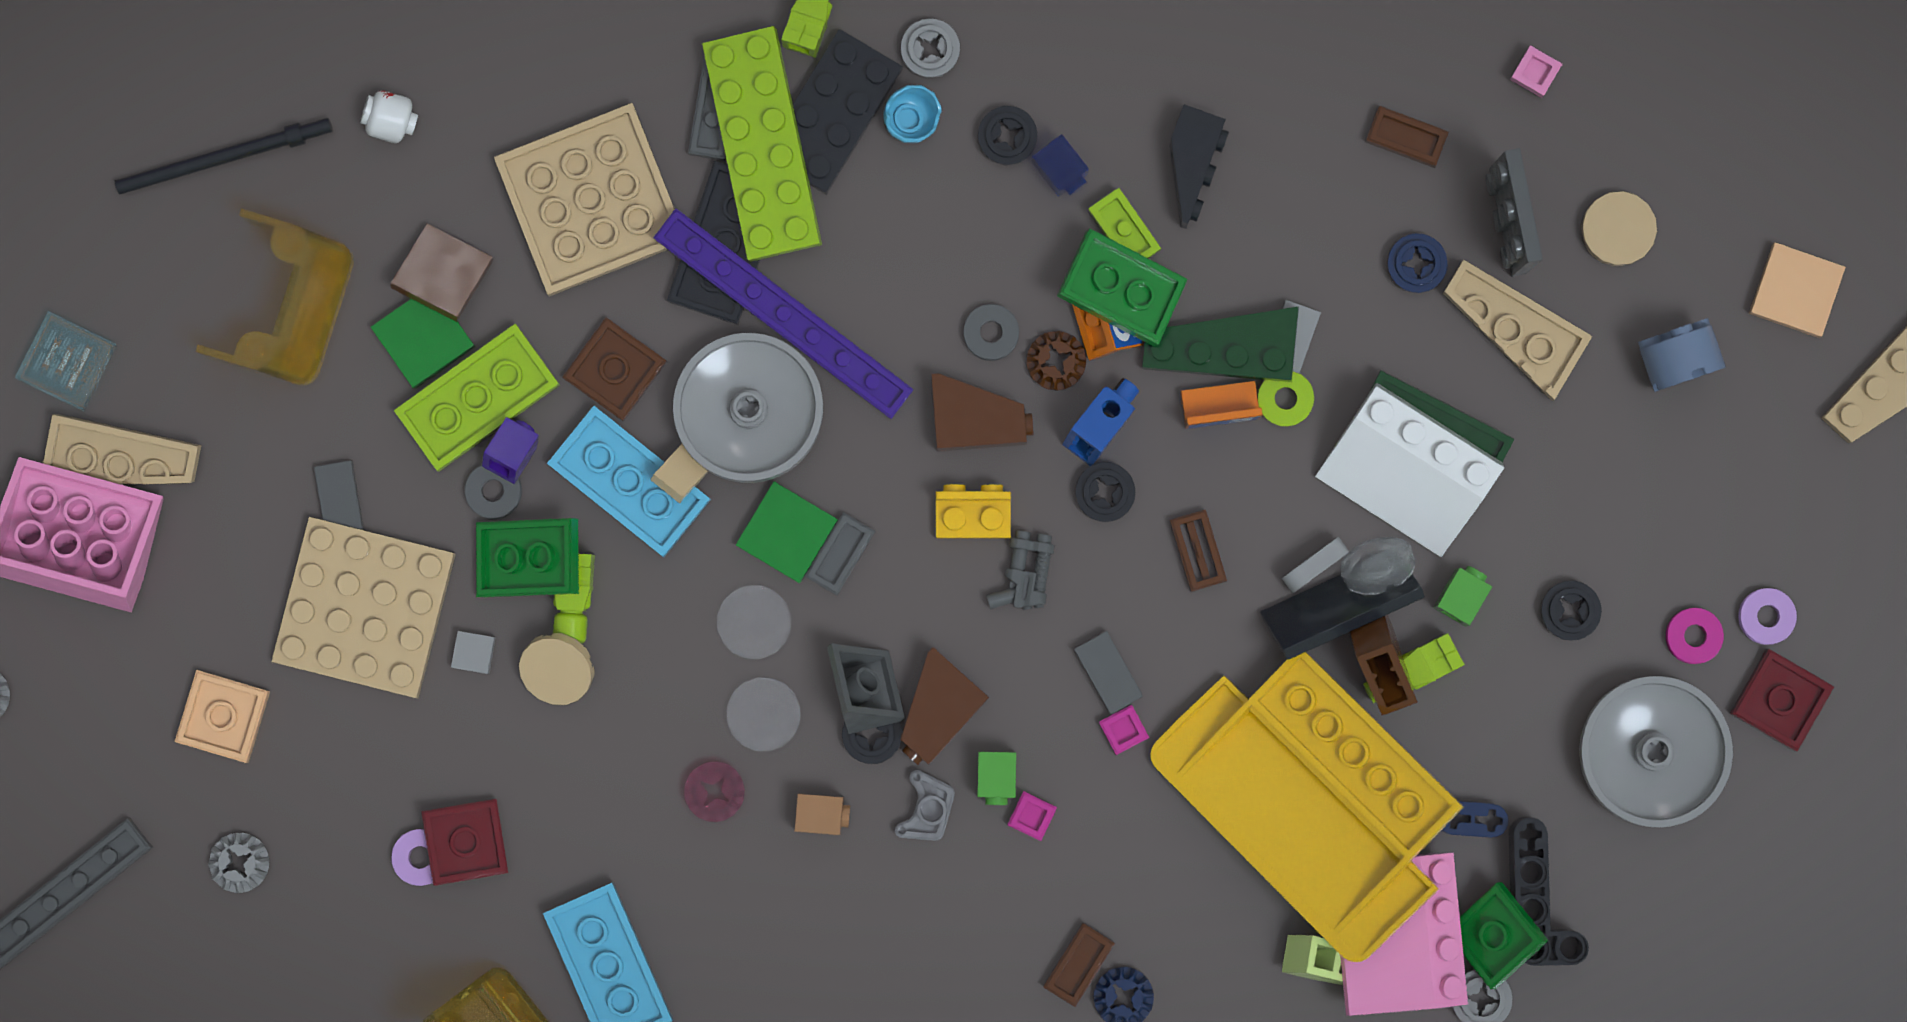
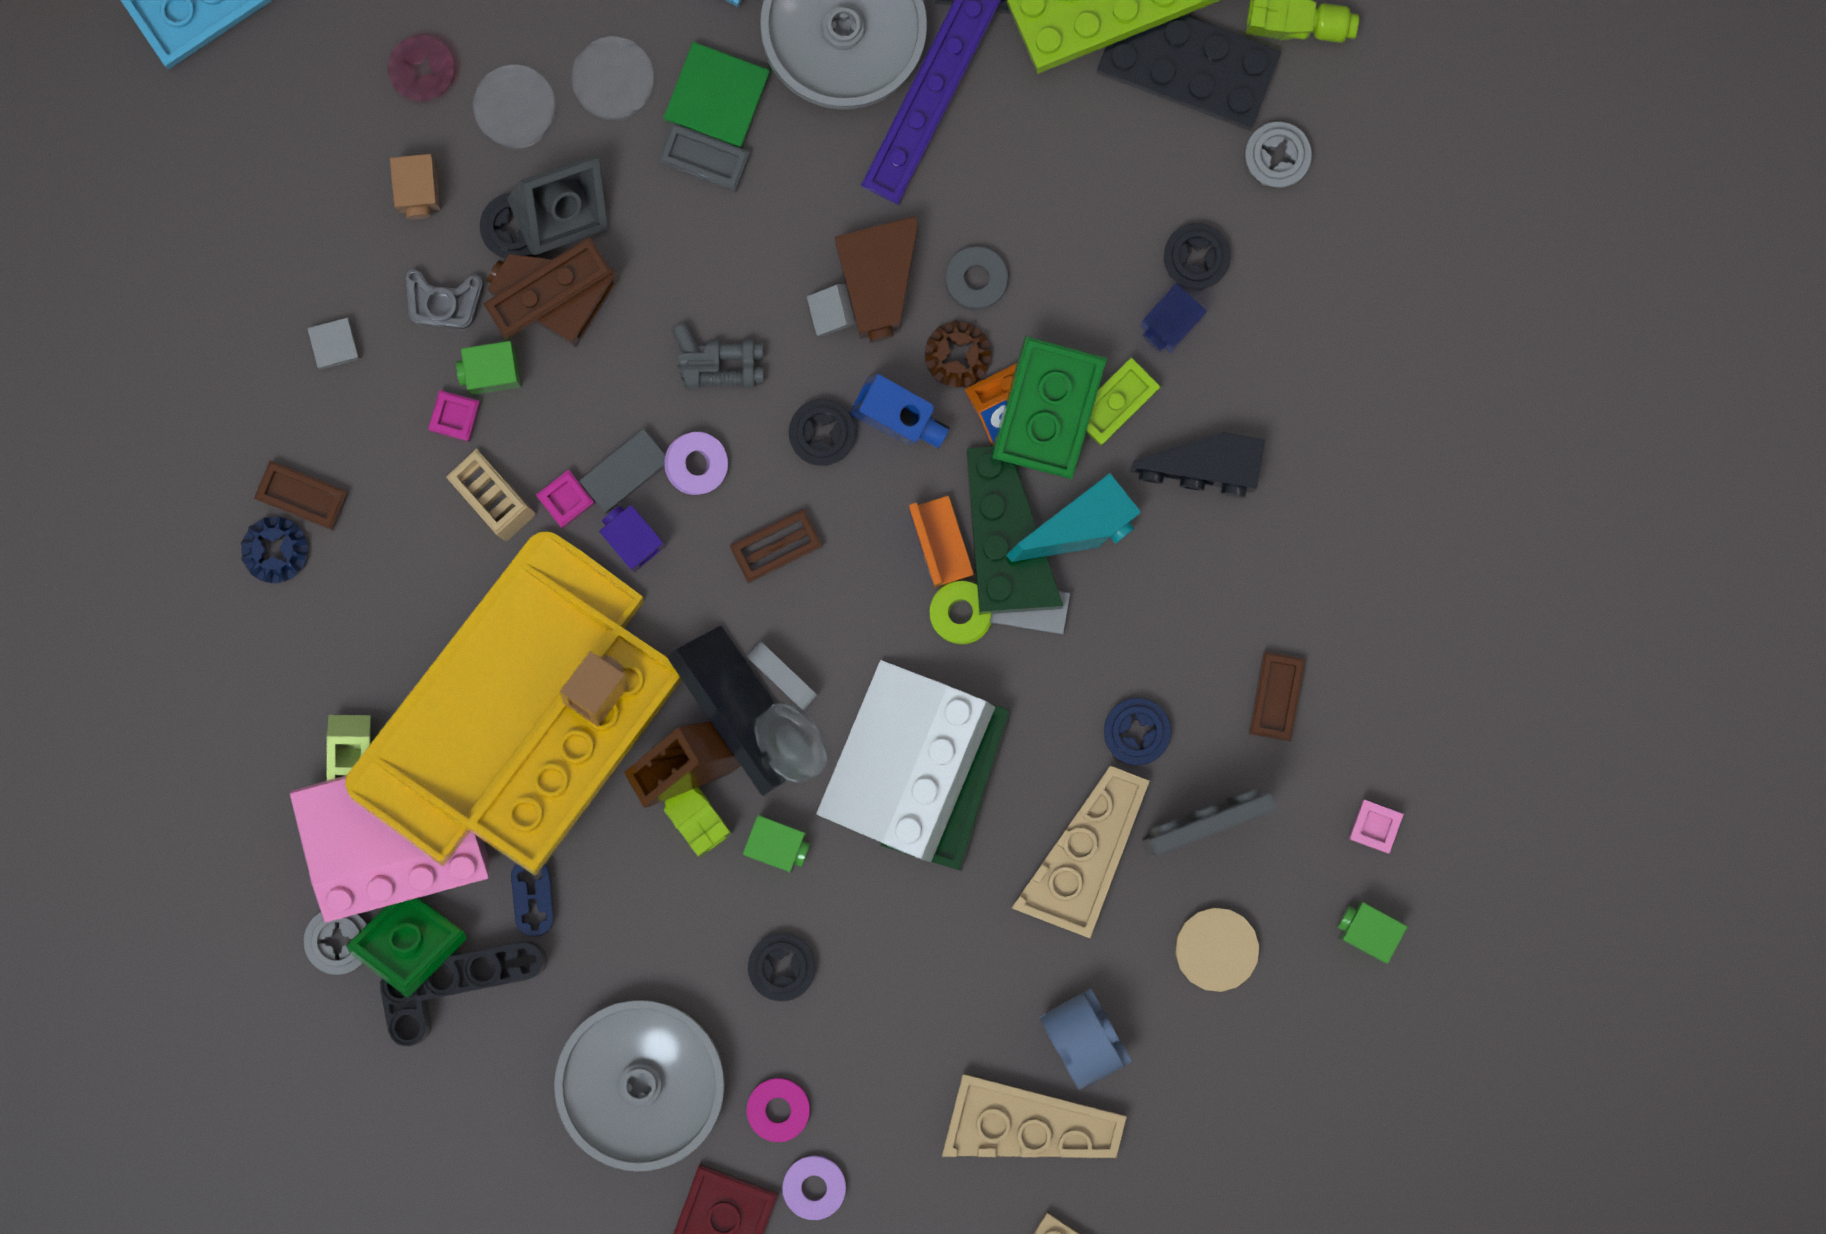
camera: 80 degrees right, 0 degrees up
(912, 114) = (1200, 145): medium azure hair -> none
(938, 709) = (547, 288): none -> reddish brown tile
(948, 912) = (333, 343): none -> light grey tile
(973, 513) = (772, 293): yellow bracket -> none
(998, 464) = (831, 310): none -> light grey tile
(1118, 591) = (676, 468): none -> lavender piece
(1136, 778) = (516, 516): none -> tan slope
(1169, 676) = (631, 537): none -> dark purple brick
(1226, 269) = (1082, 525): none -> teal slope
(1305, 726) = (594, 687): none -> medium nougat brick
(1627, 92) = (1371, 931): none -> bright green brick
(1741, 427) = (1017, 1122): none -> tan wing
(1797, 290) = (1184, 1160): light nougat tile -> none

